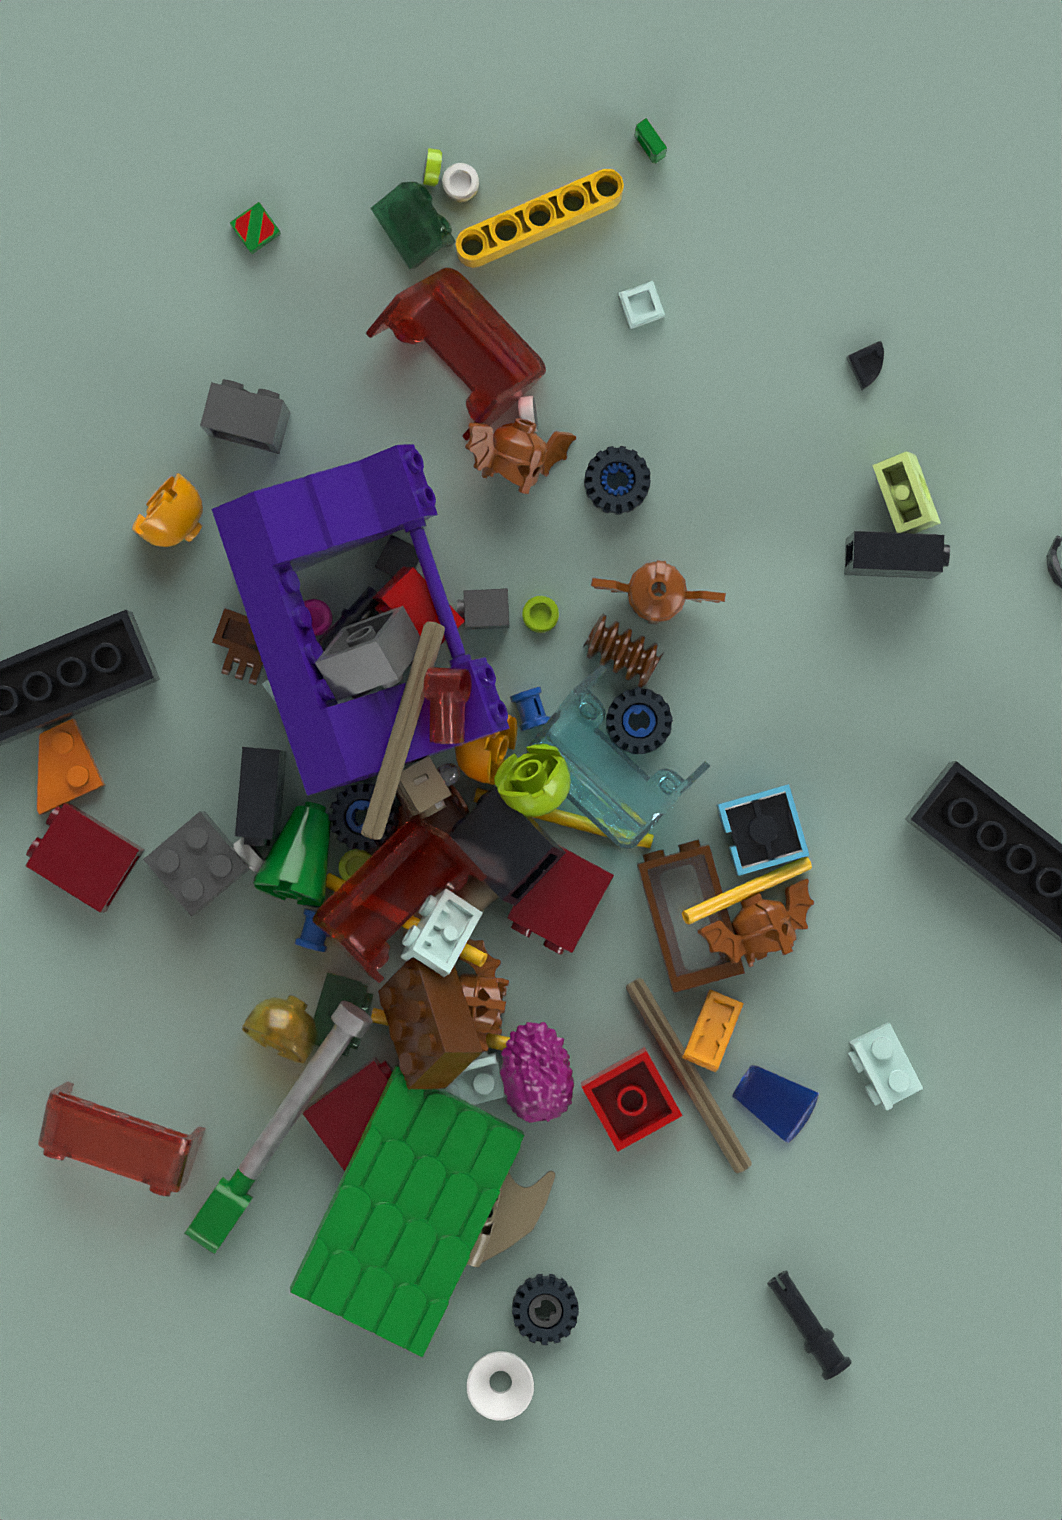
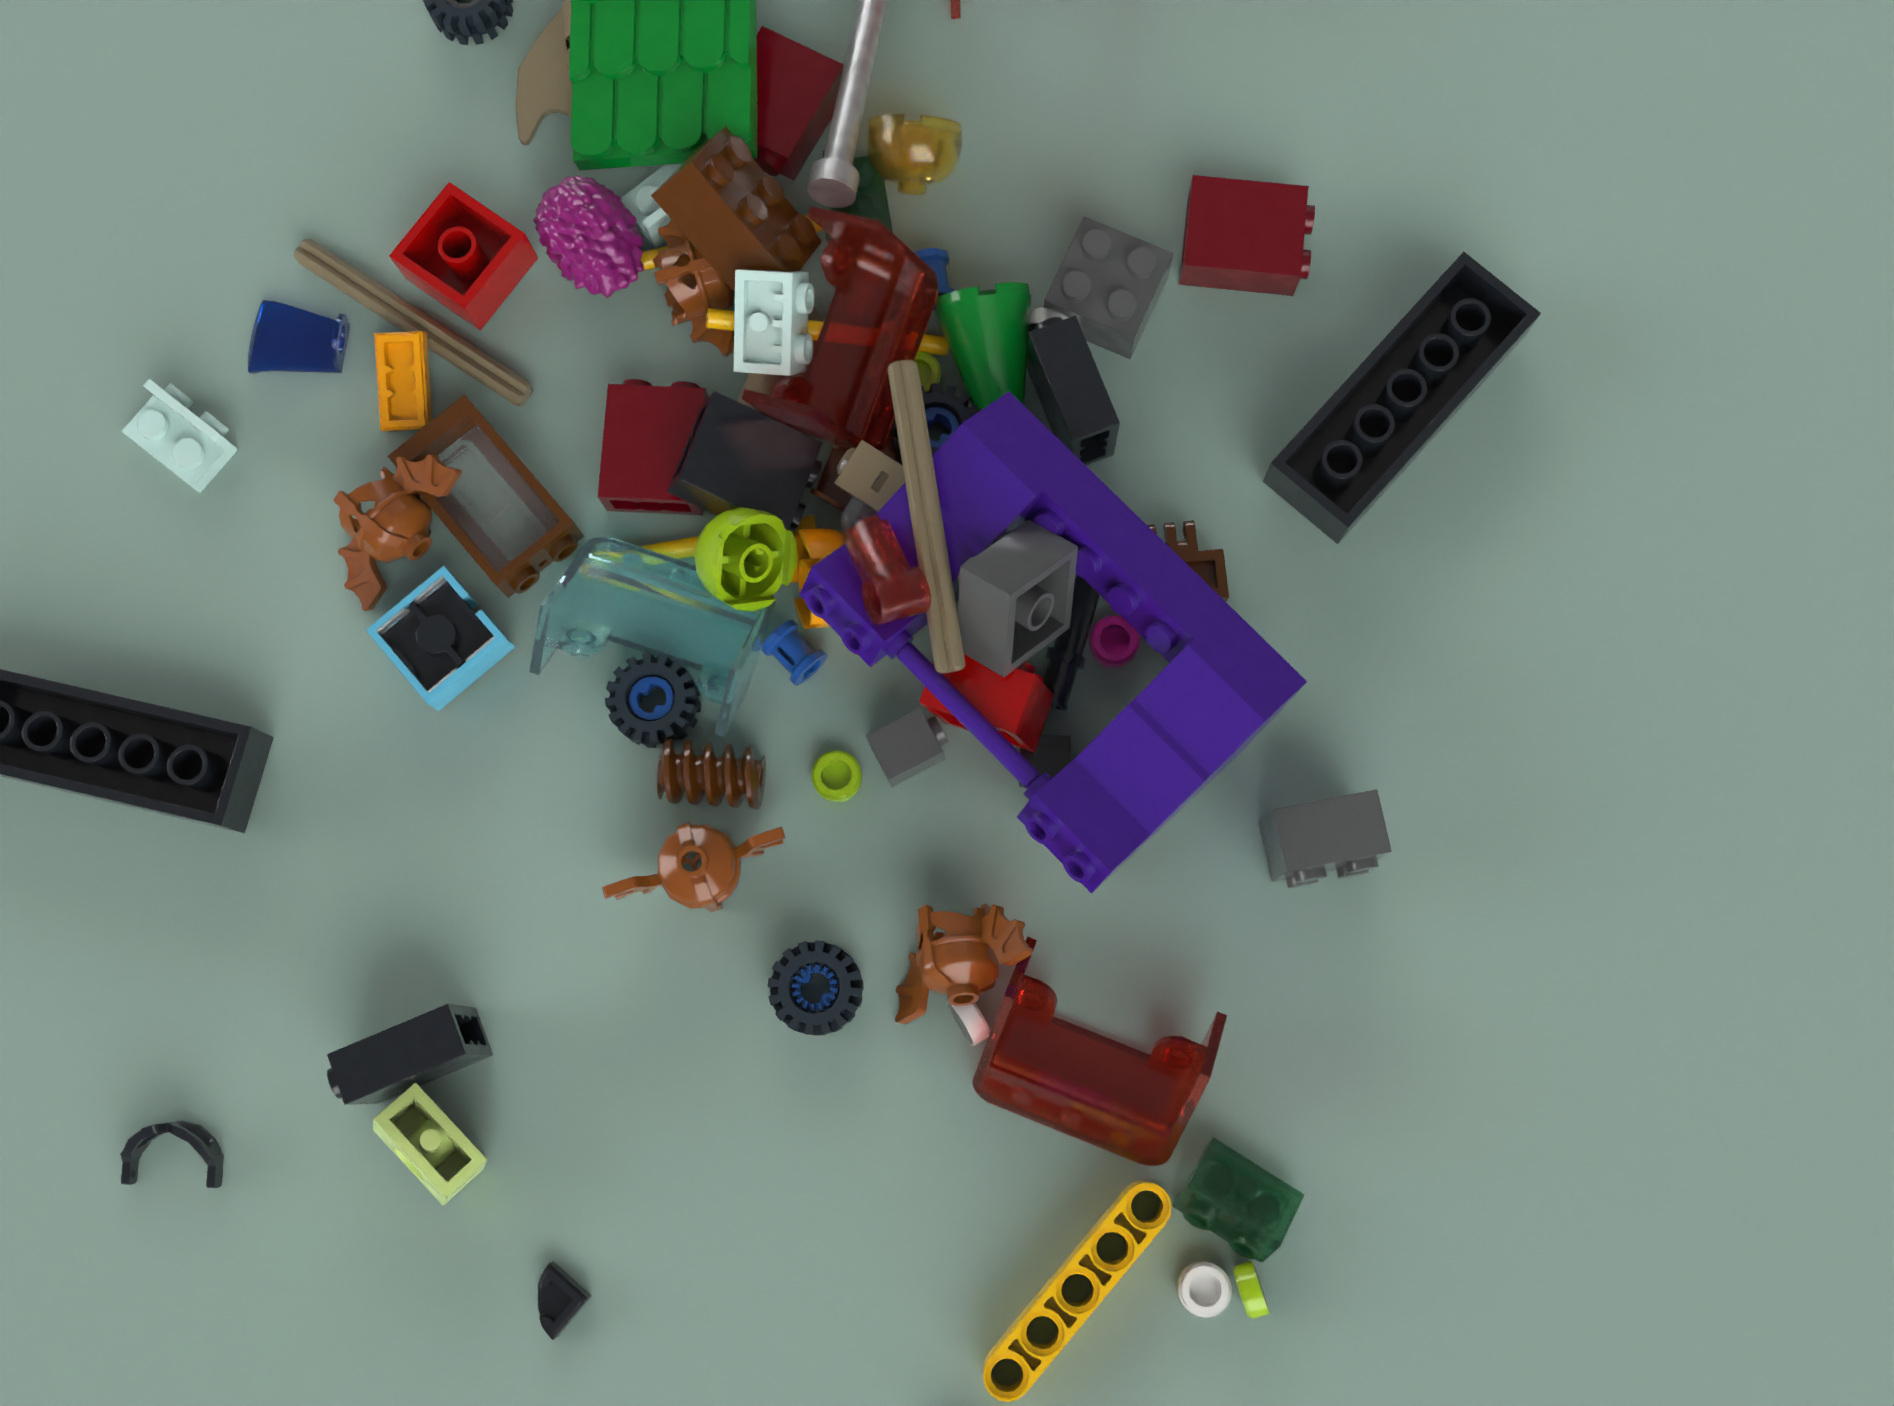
camera: 160 degrees right, 10 degrees down
(64, 767) = (1321, 329): orange wing -> none
(171, 514) = (1353, 676): light orange cylinder -> none
(255, 228) = (1438, 1097): green tile -> none
(641, 304) = (890, 1237): light aqua tile -> none
(746, 890) = (432, 544): yellow piece -> none
(818, 1340) = (136, 104): black pin -> none

